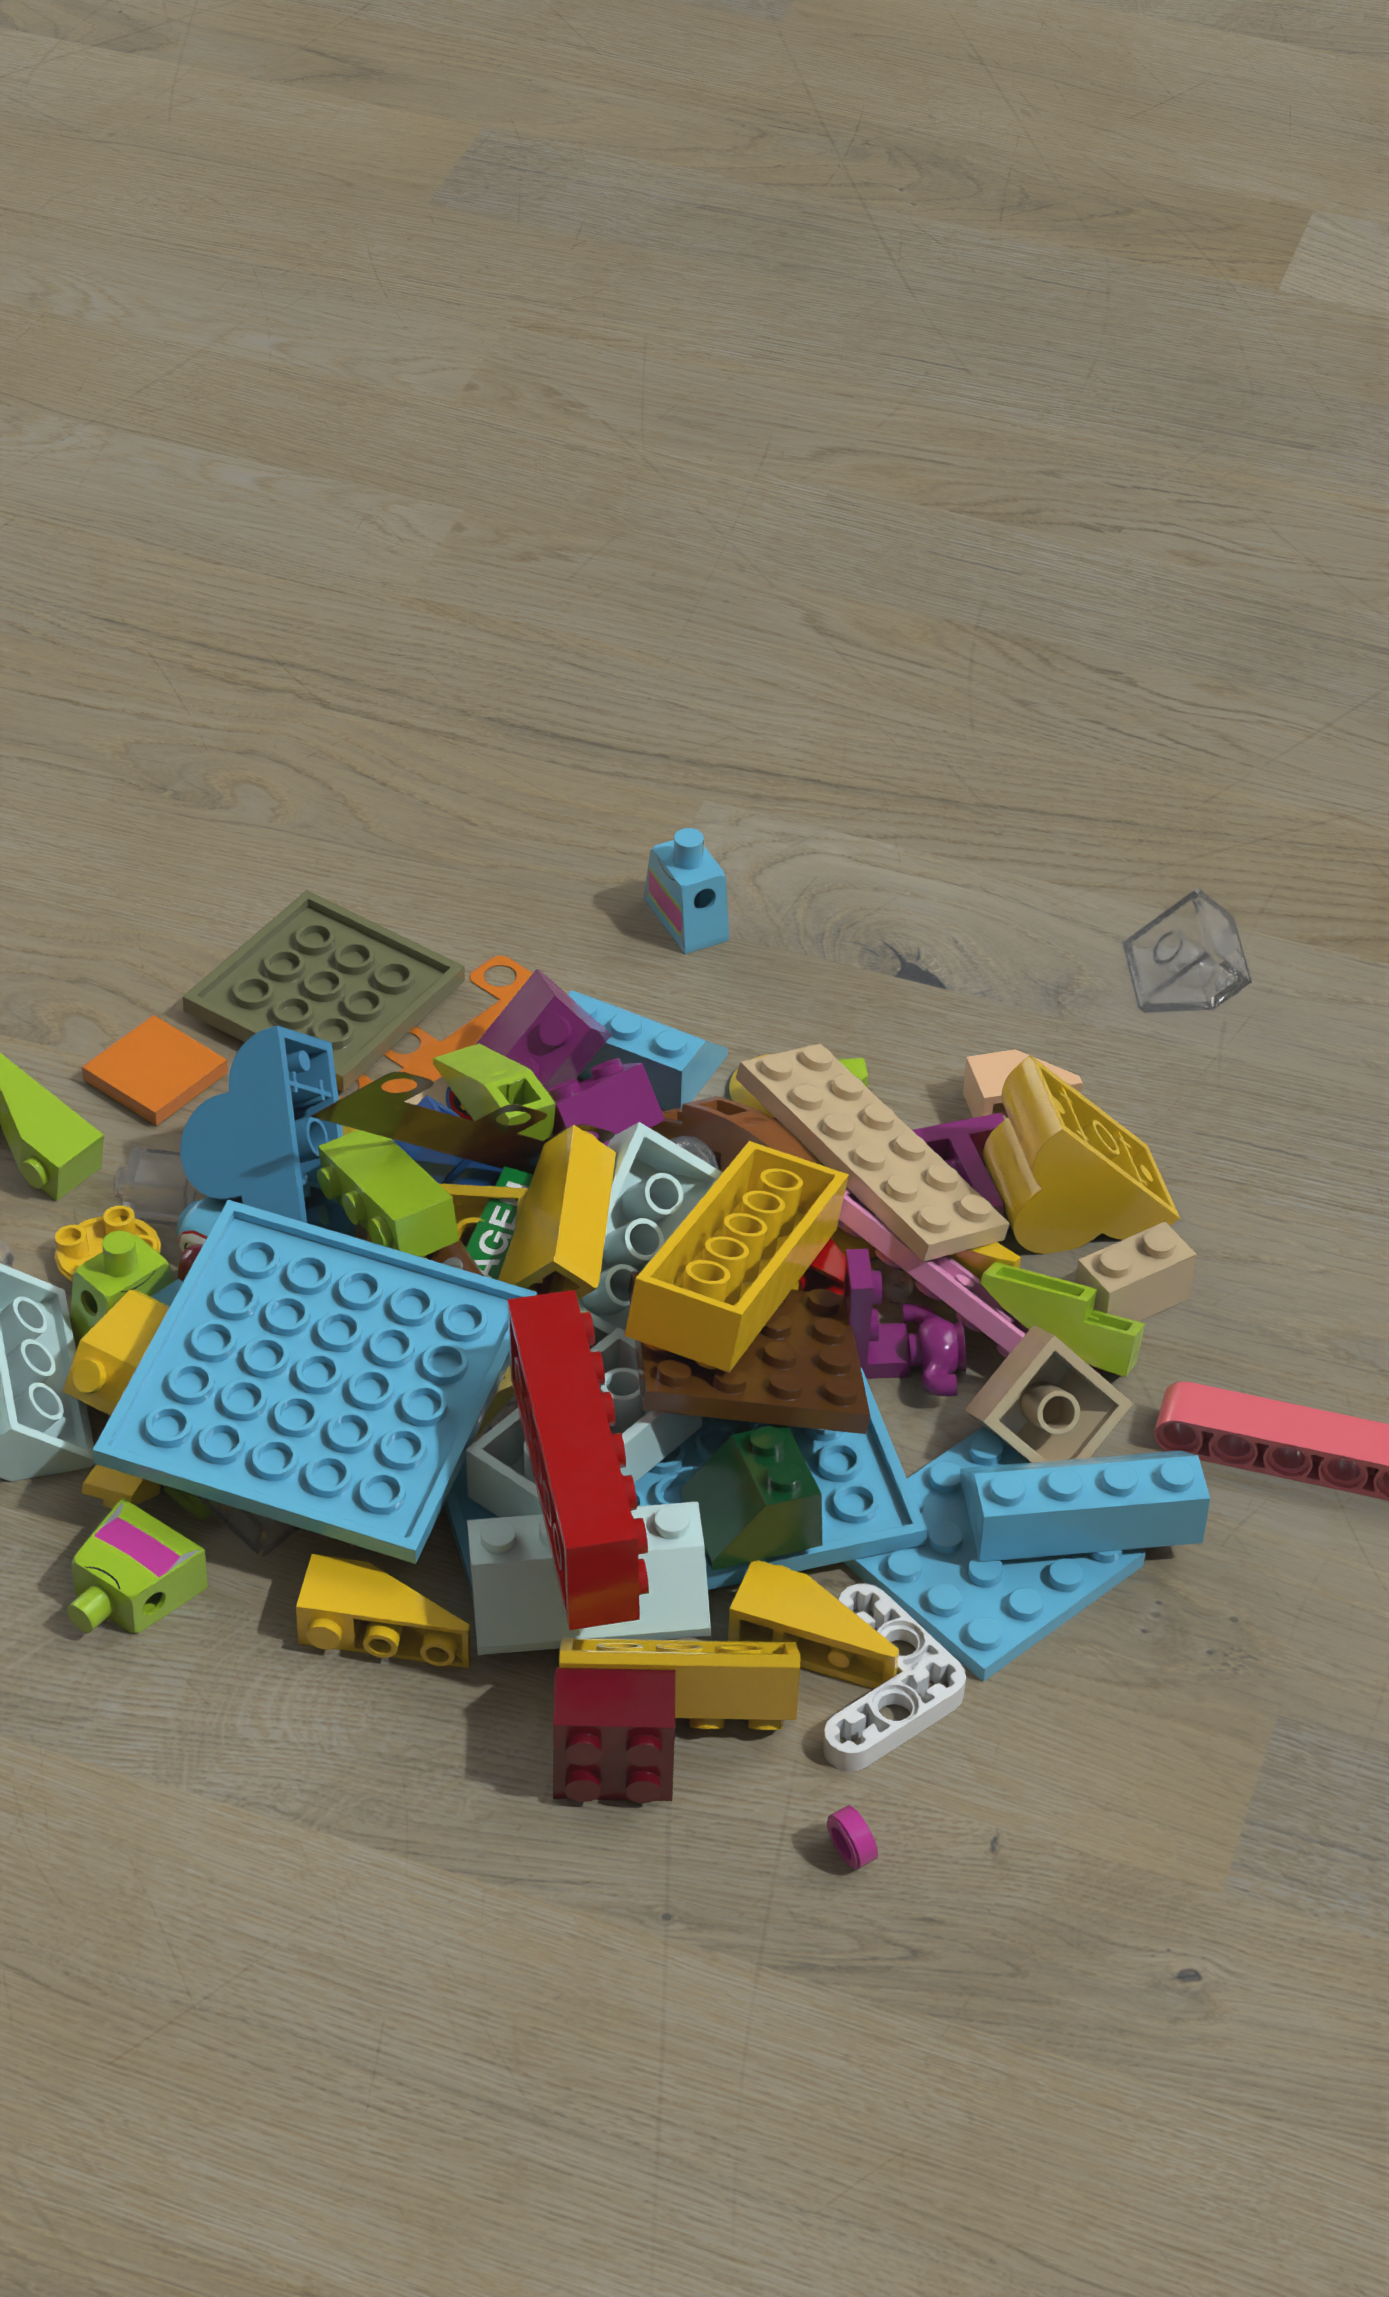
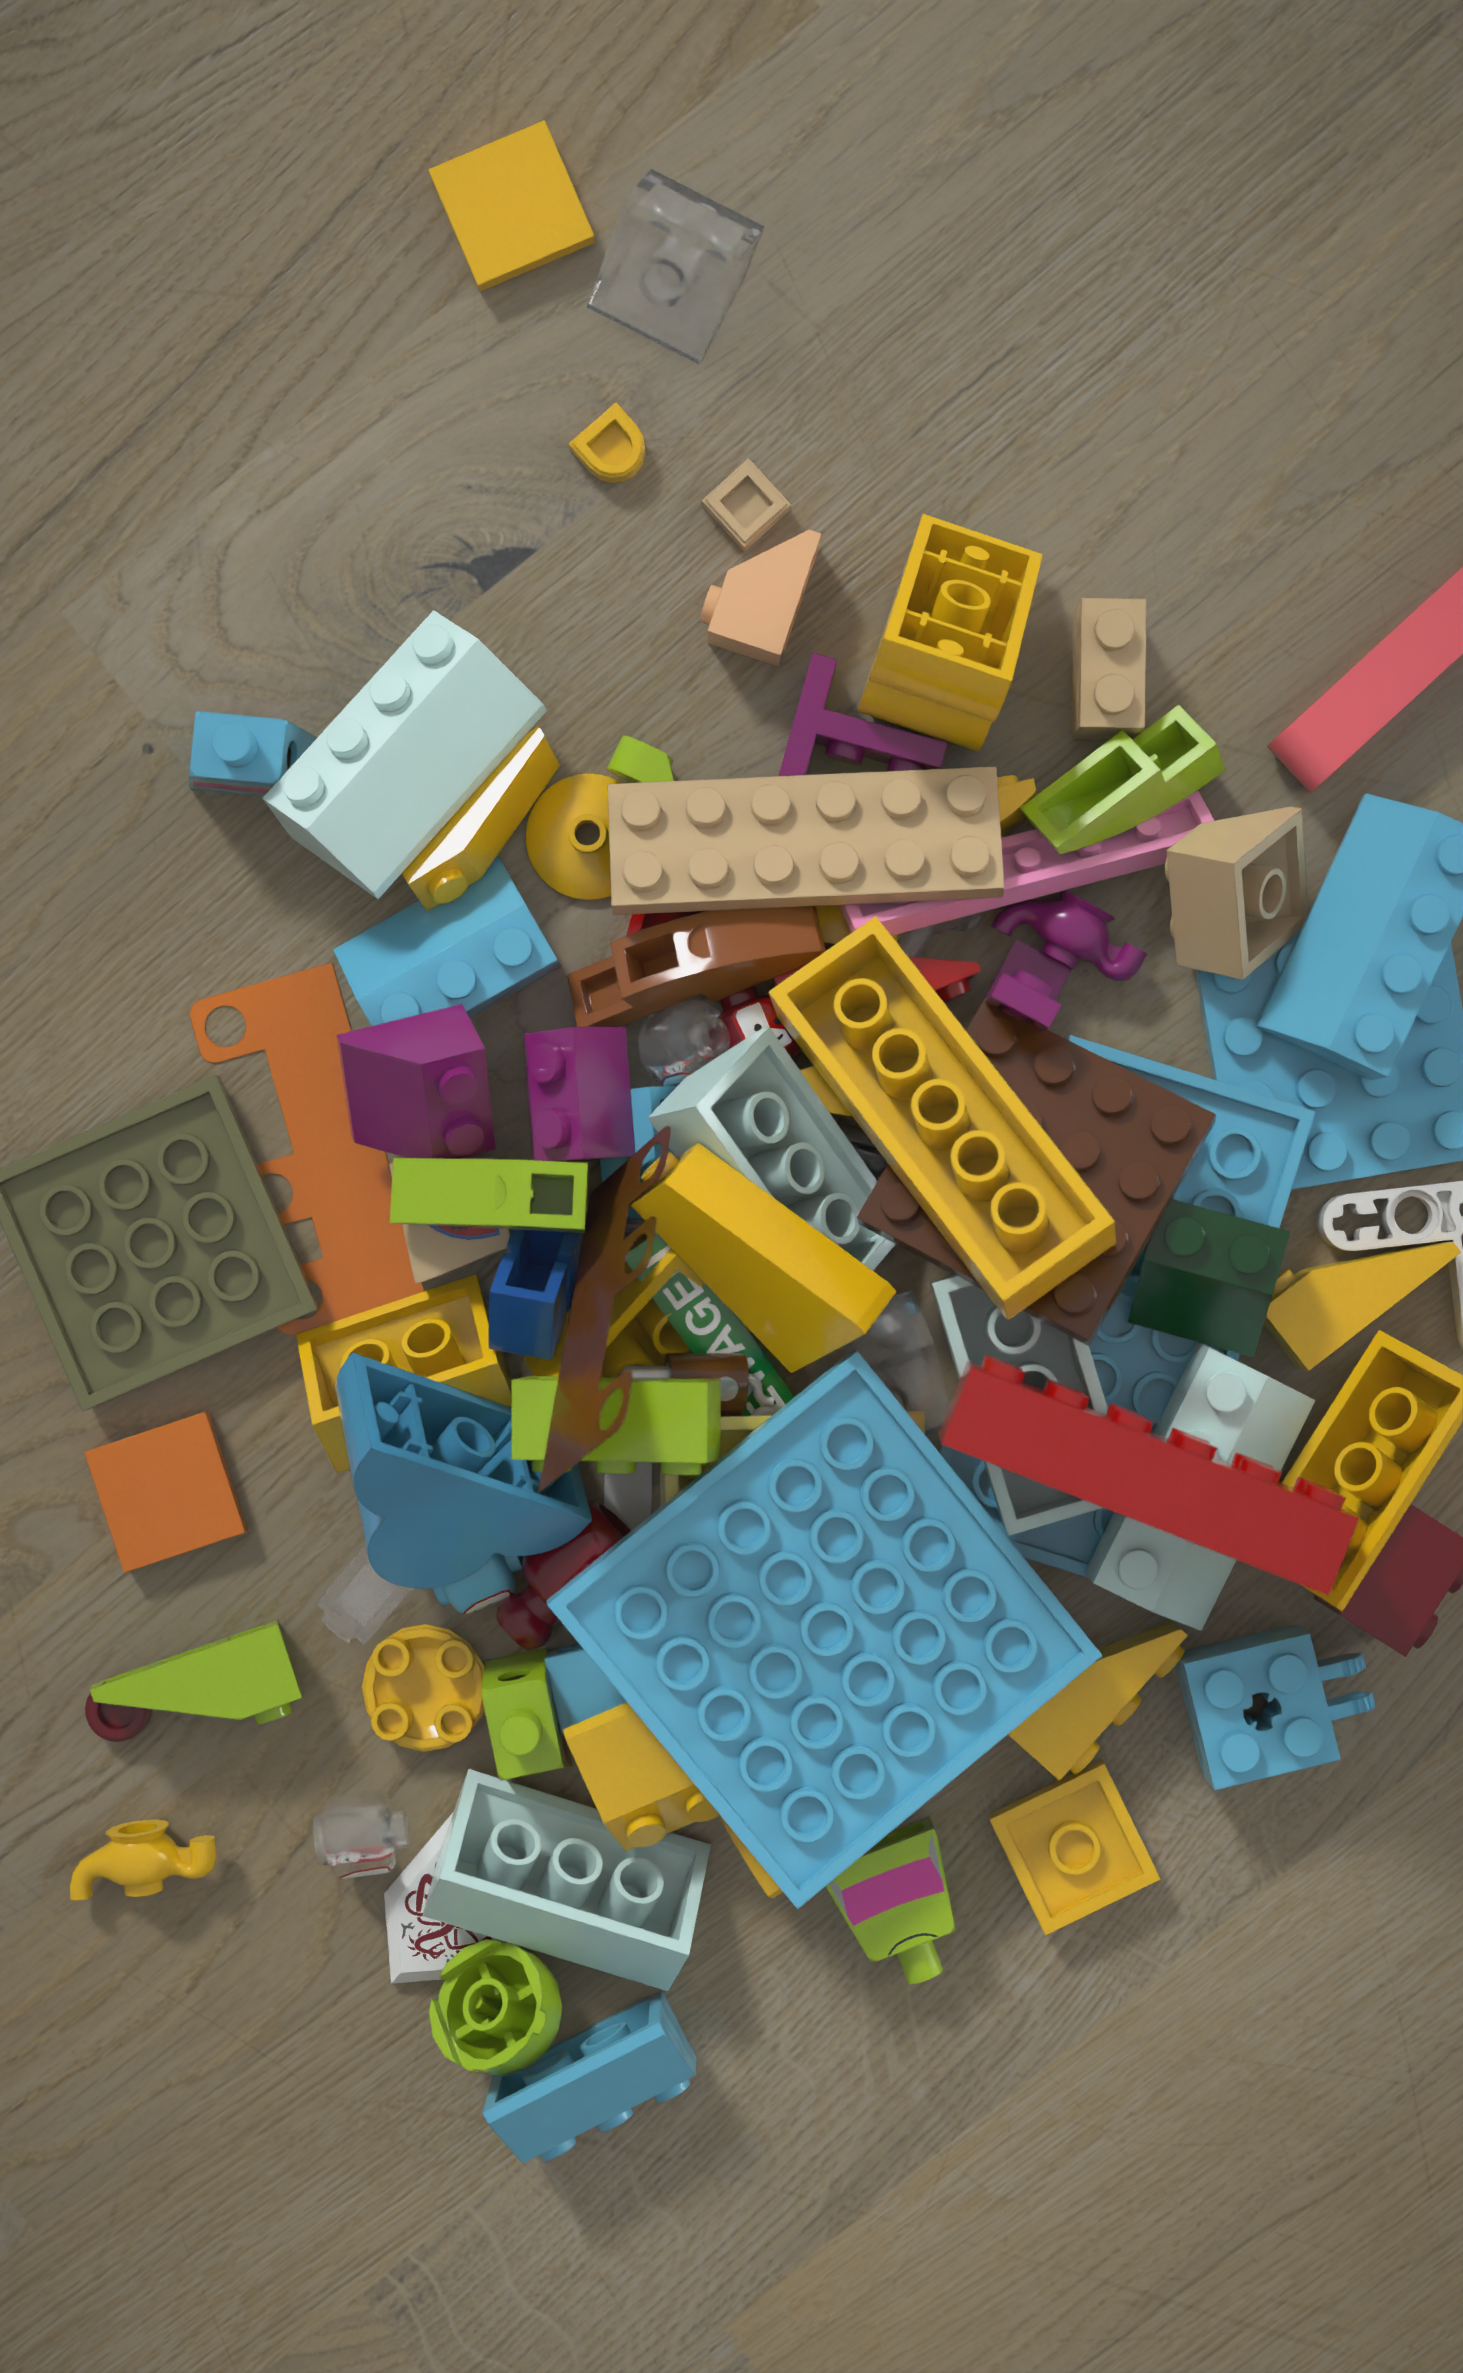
camera: 60 degrees left, 45 degrees up
(246, 1667) = (1073, 1847): none -> yellow plate
(445, 1720) = (1298, 1720): none -> medium azure hinge
(740, 1010) = (482, 824): none -> yellow slope
(754, 943) = (404, 754): none -> light aqua slope
(1045, 989) = (610, 446): none -> yellow tile
(1075, 1059) = (746, 505): none -> tan tile
(1146, 878) = (512, 206): none -> yellow tile

